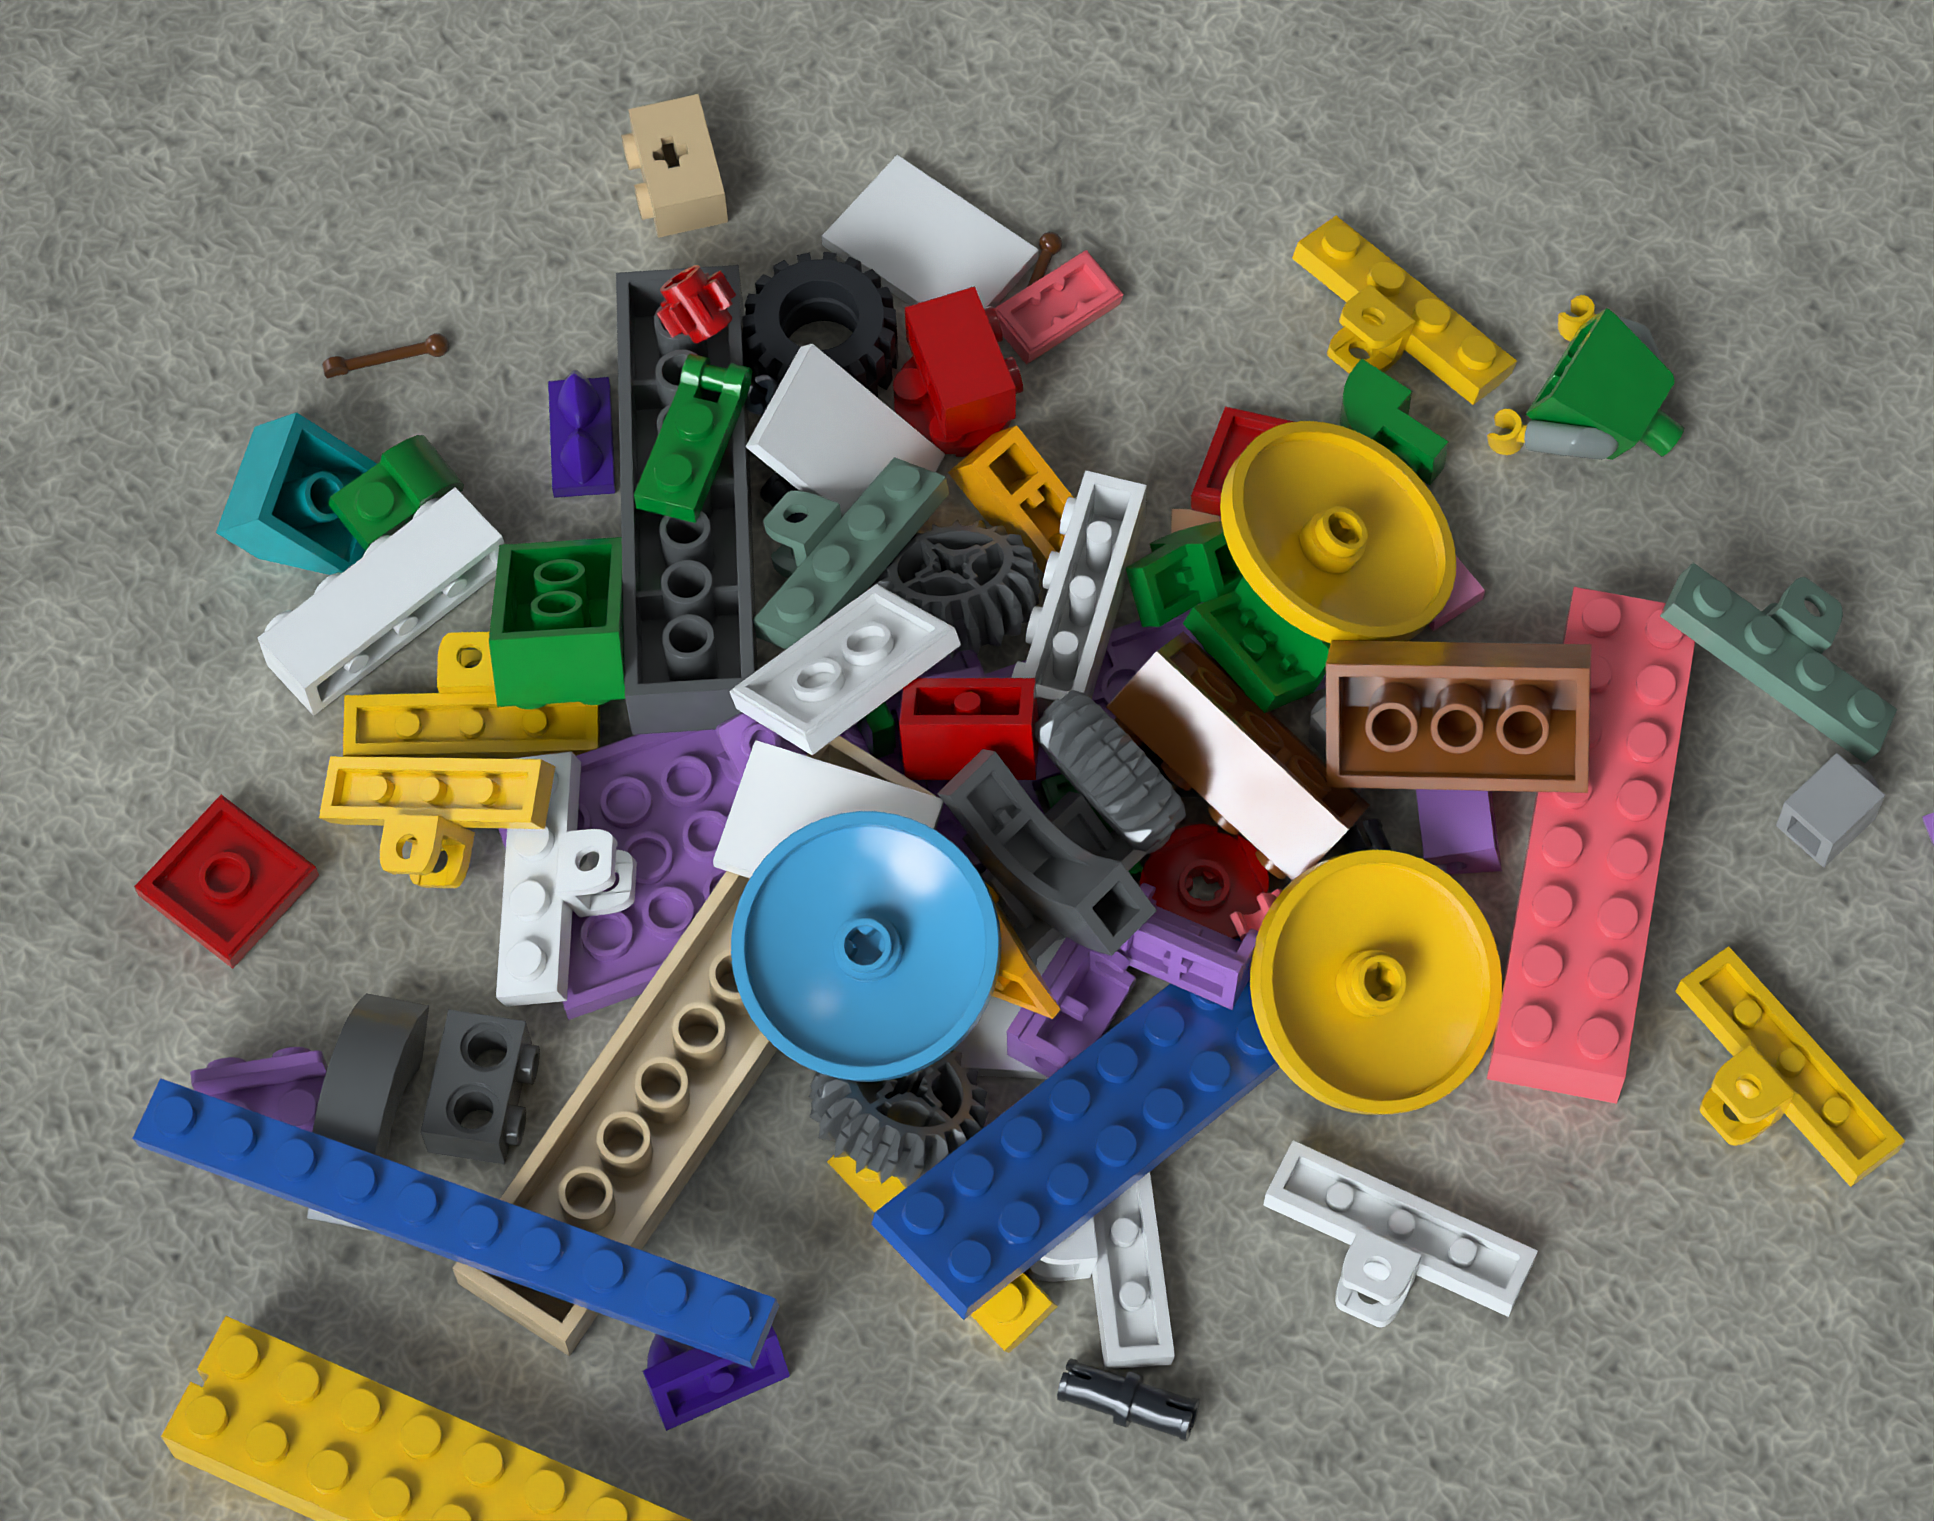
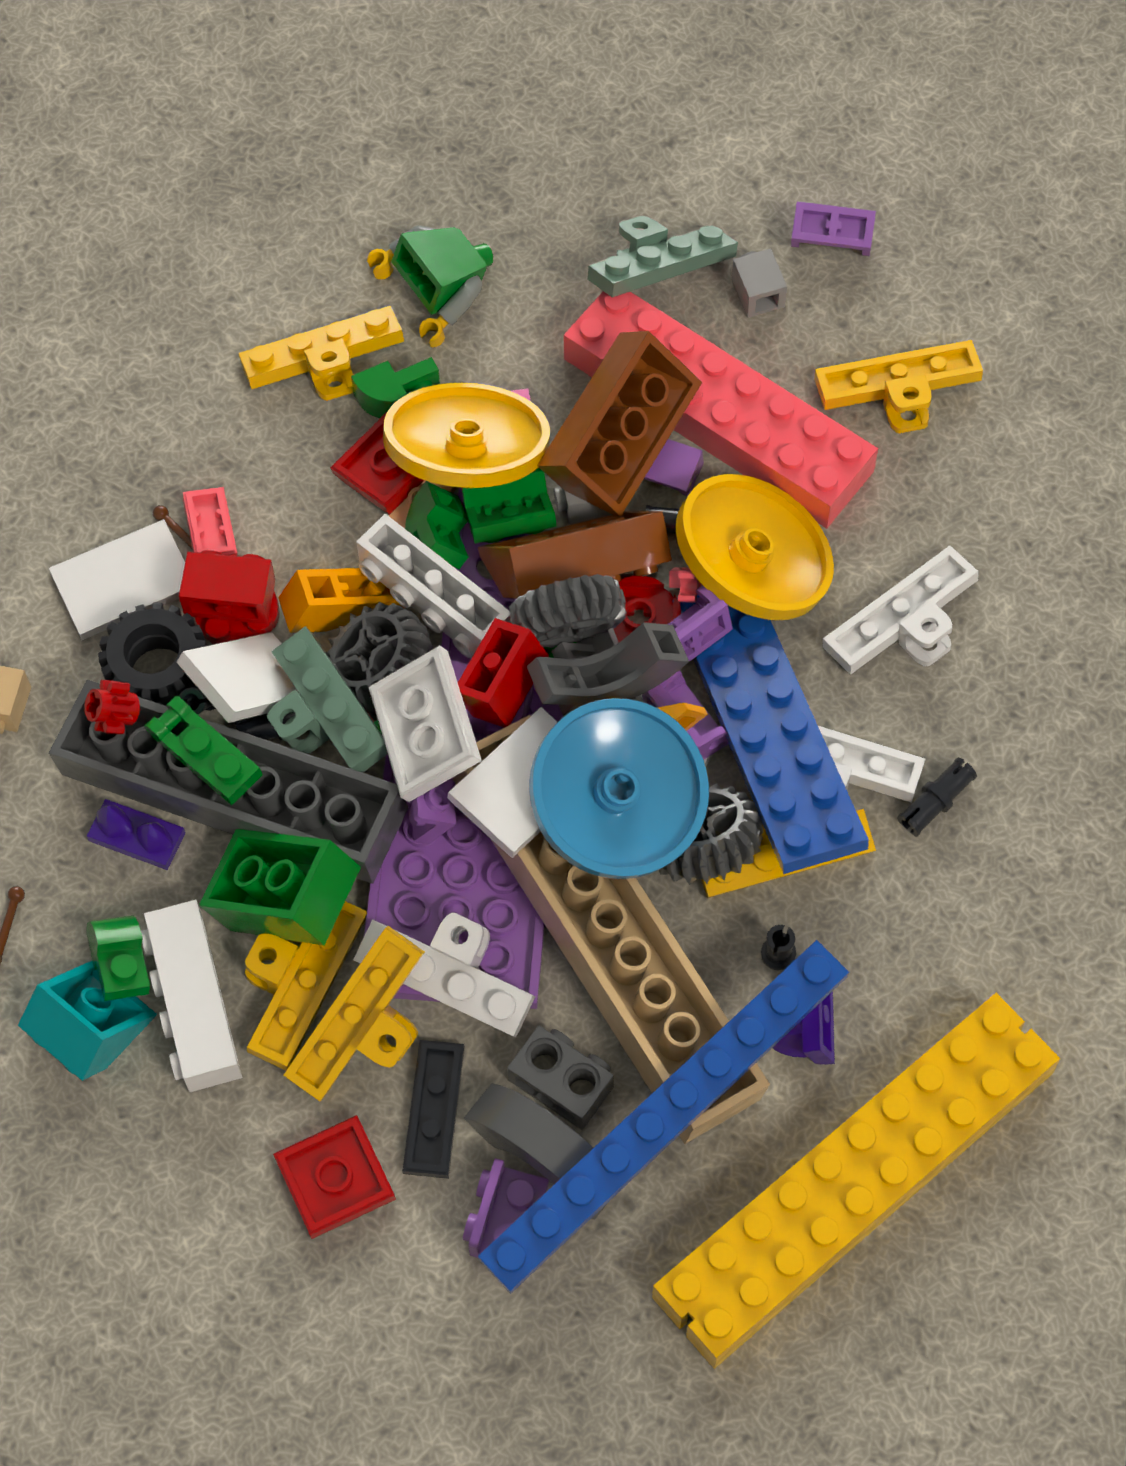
camera: 65 degrees left, 0 degrees up
(373, 957) = (433, 1109): none -> black tile
(792, 1295) = (786, 953): none -> black pin

